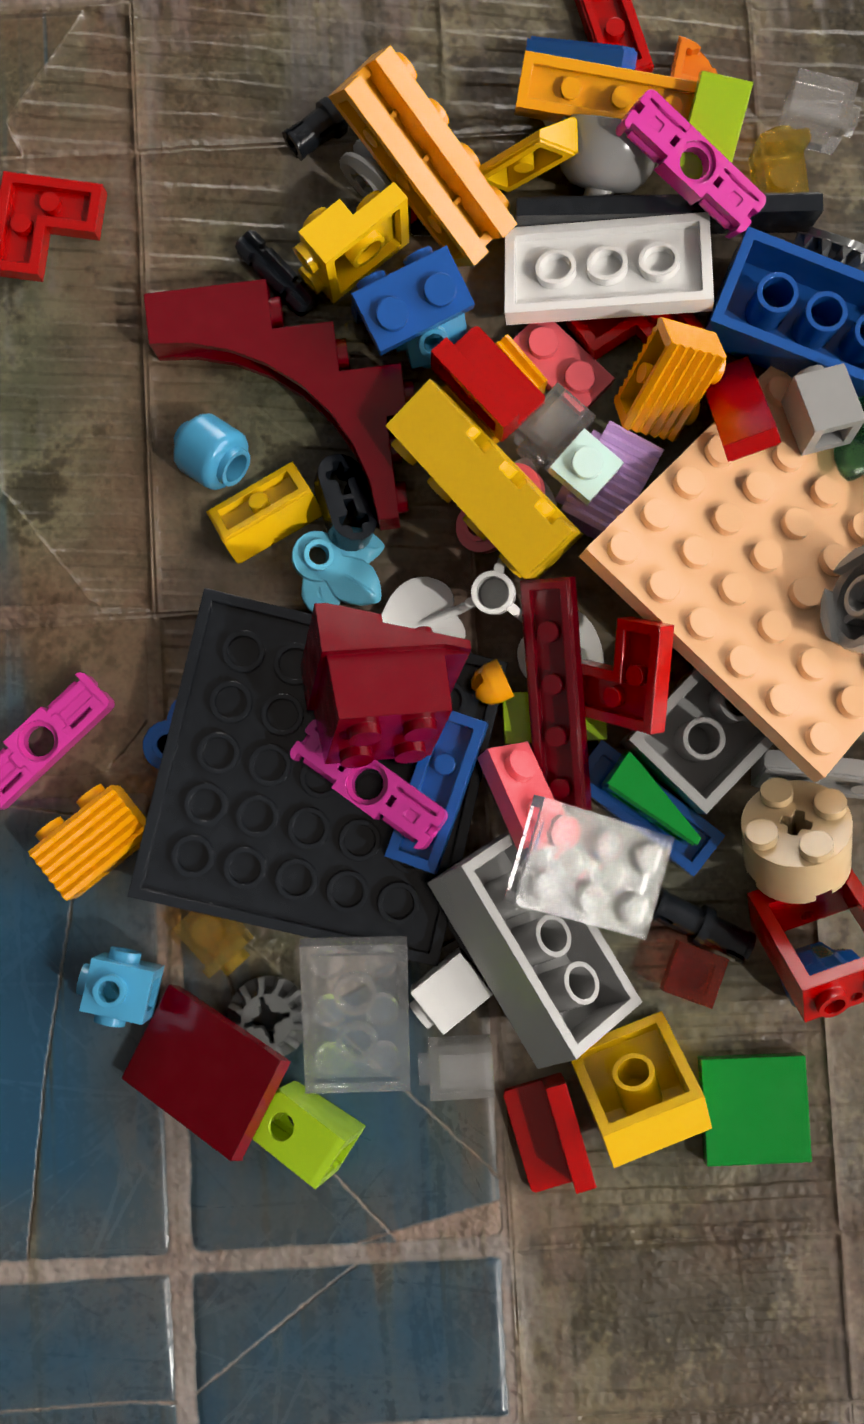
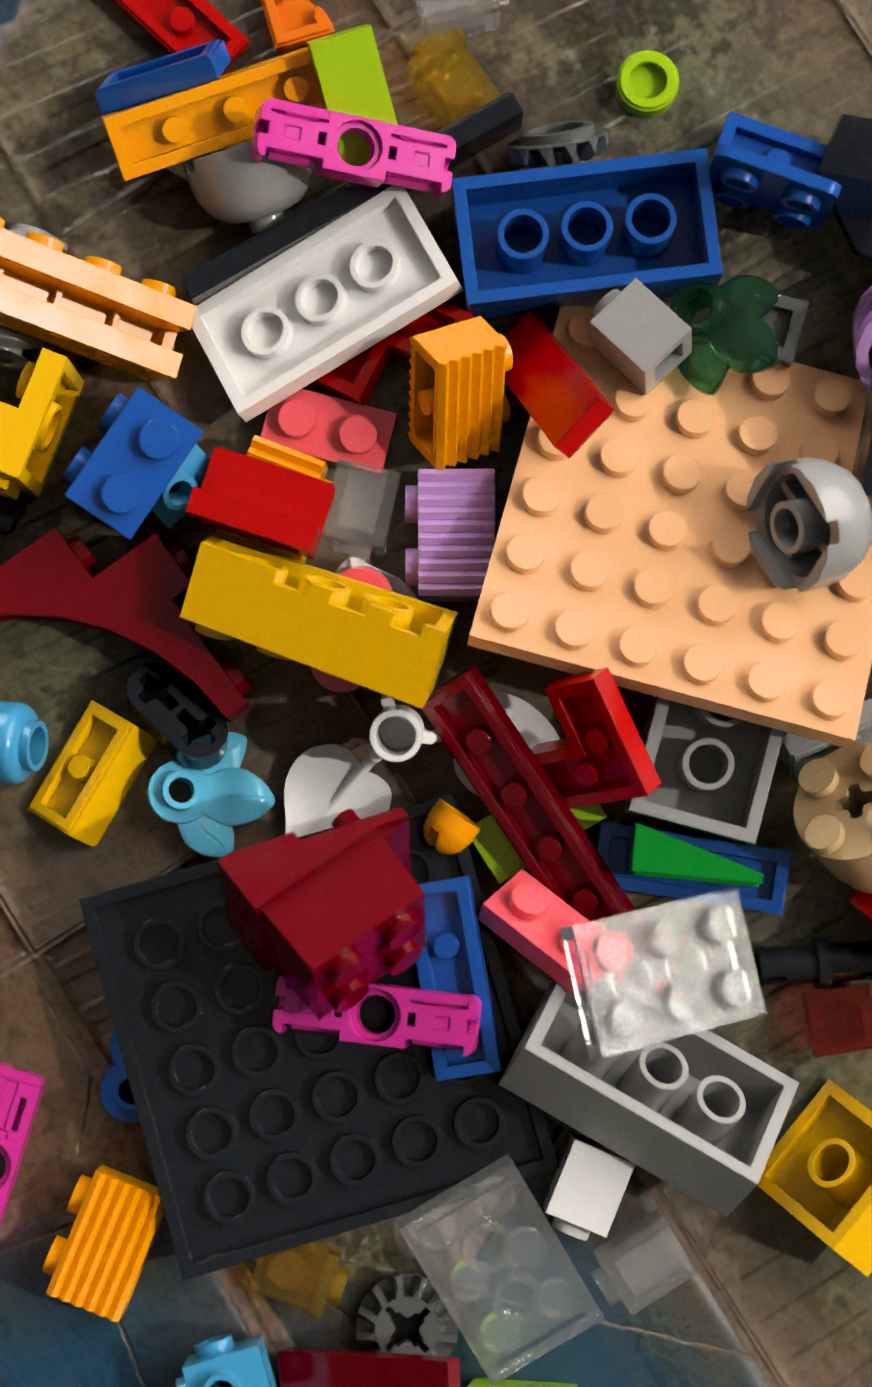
camera: 30 degrees left, 0 degrees up
(532, 155) = (171, 223): yellow slope -> none
(548, 1134) = (779, 1281): red panel -> none
(585, 467) = (420, 537): light aqua plate -> none

